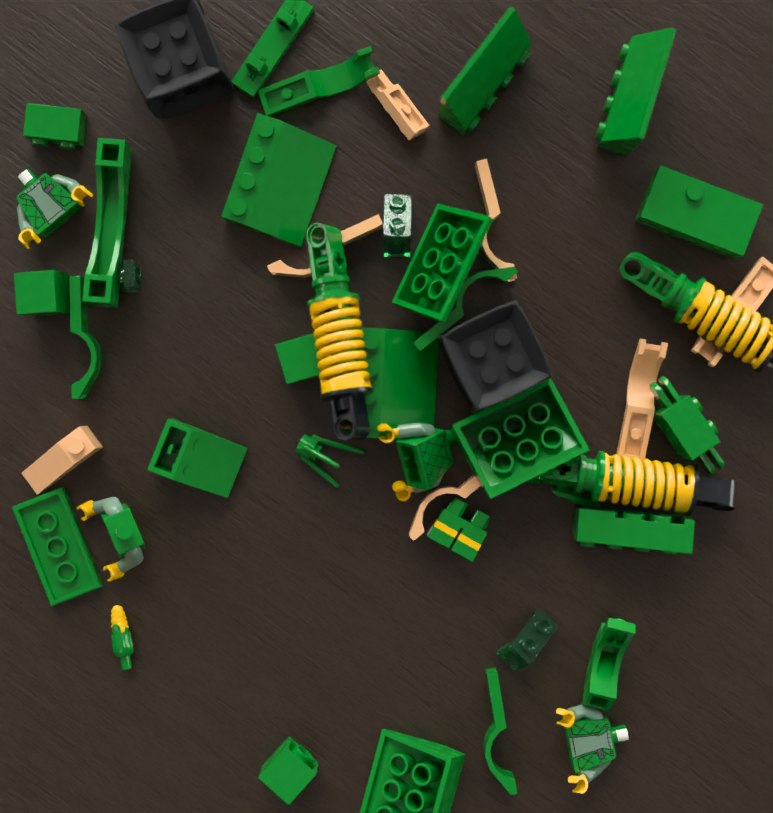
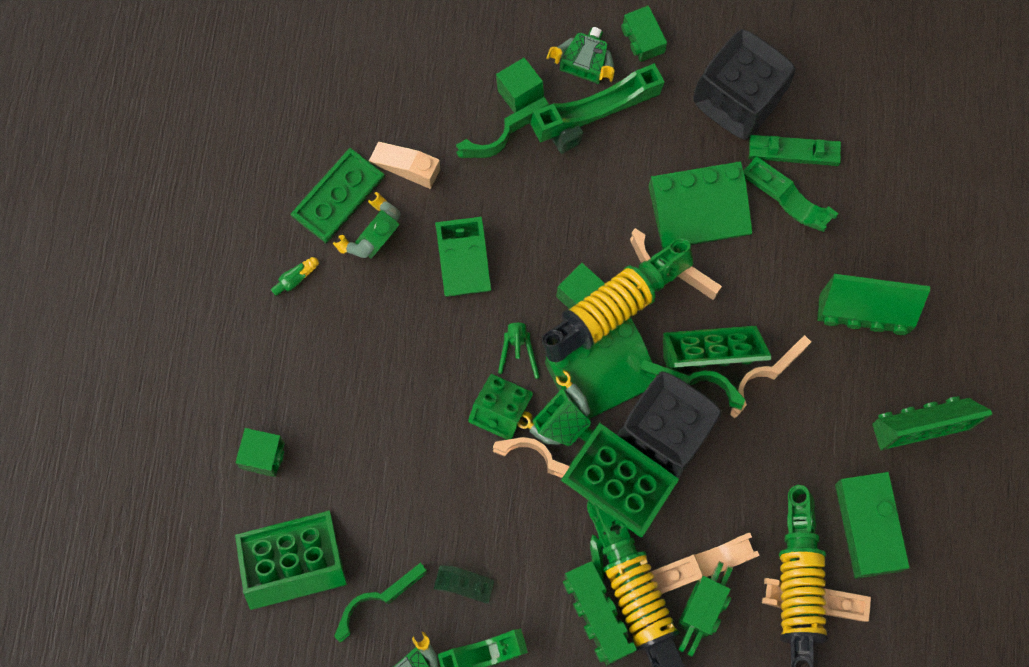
camera: 55 degrees right, 15 degrees down
(372, 506) = (499, 407): none -> green bracket
(397, 225) = (720, 306): clear green bracket -> none
(398, 106) = (808, 260): light nougat hinge -> none
(471, 533) = (517, 480): green hips -> none

